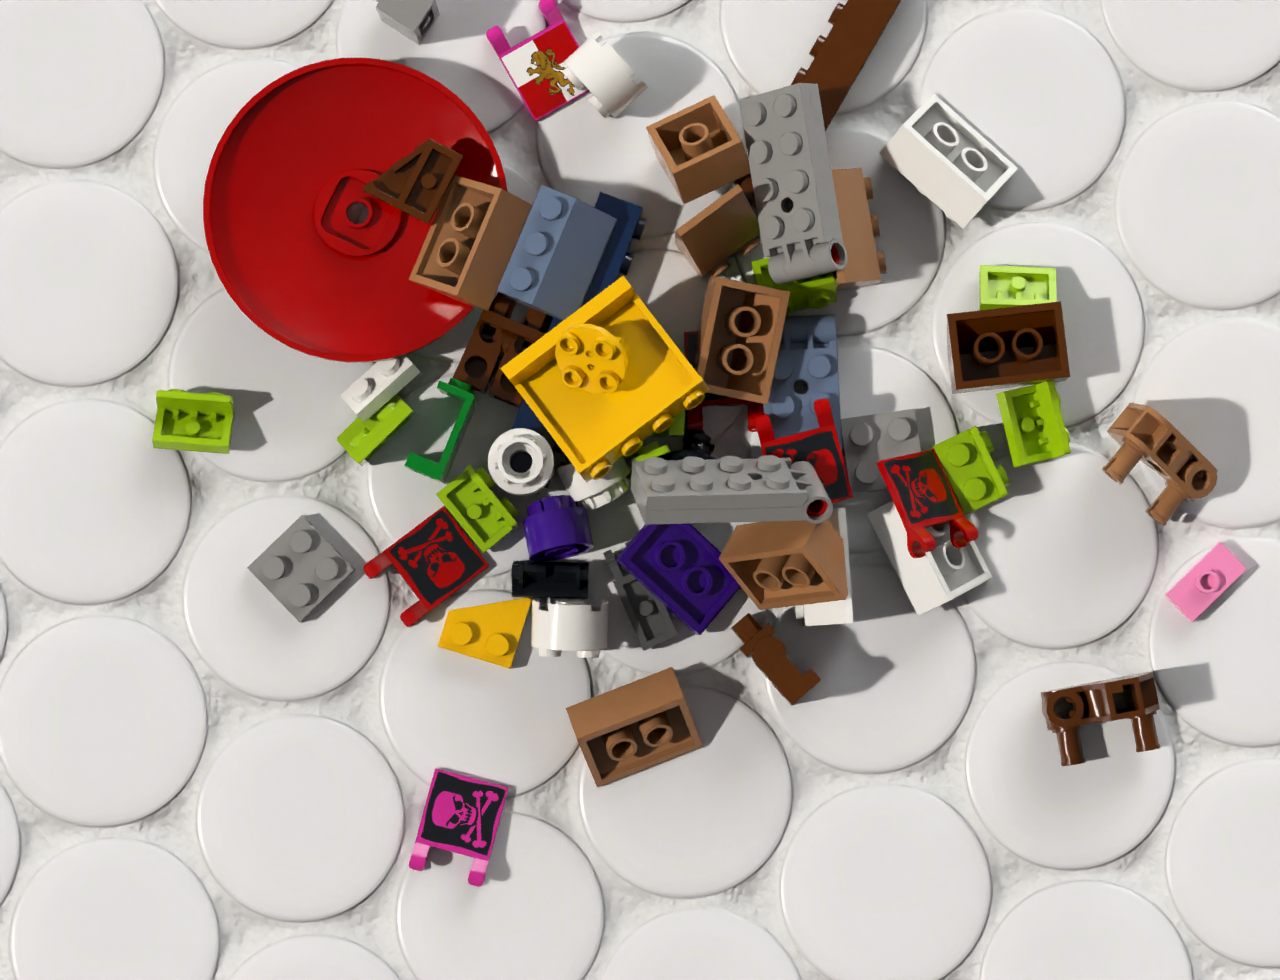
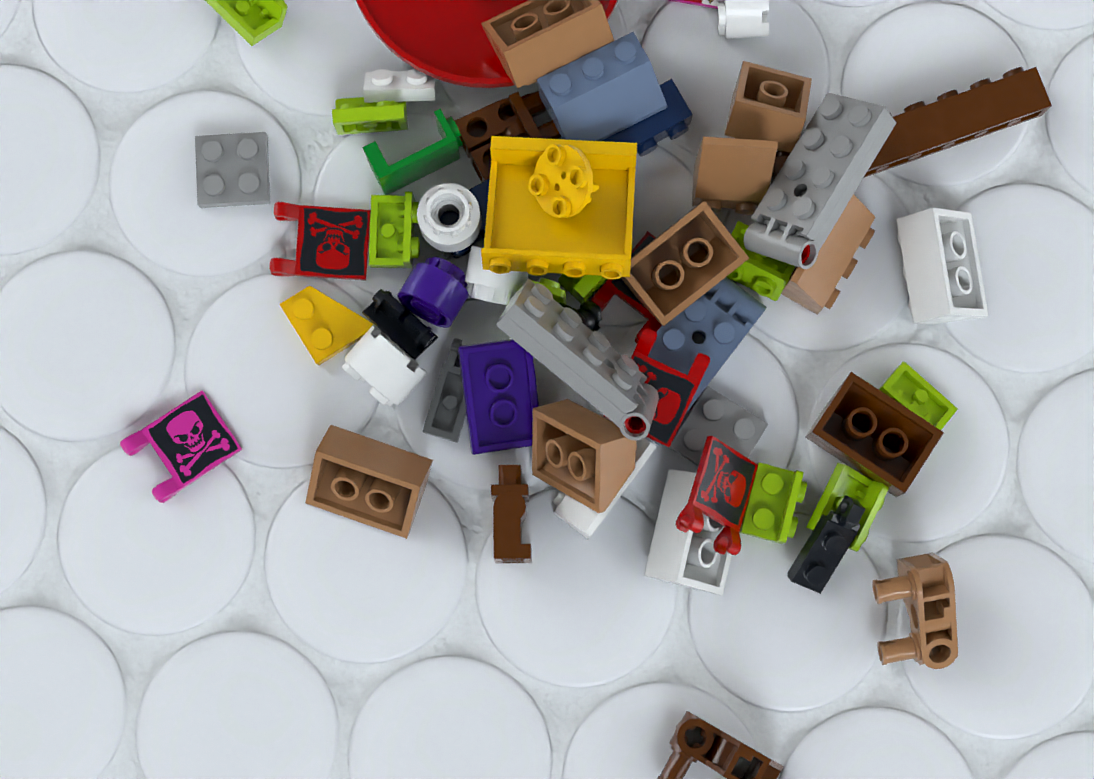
camera: 40 degrees right, 5 degrees down
(1042, 469) = (827, 546): none -> black hinge
(1205, 582) = (878, 733): bright pink plate -> none

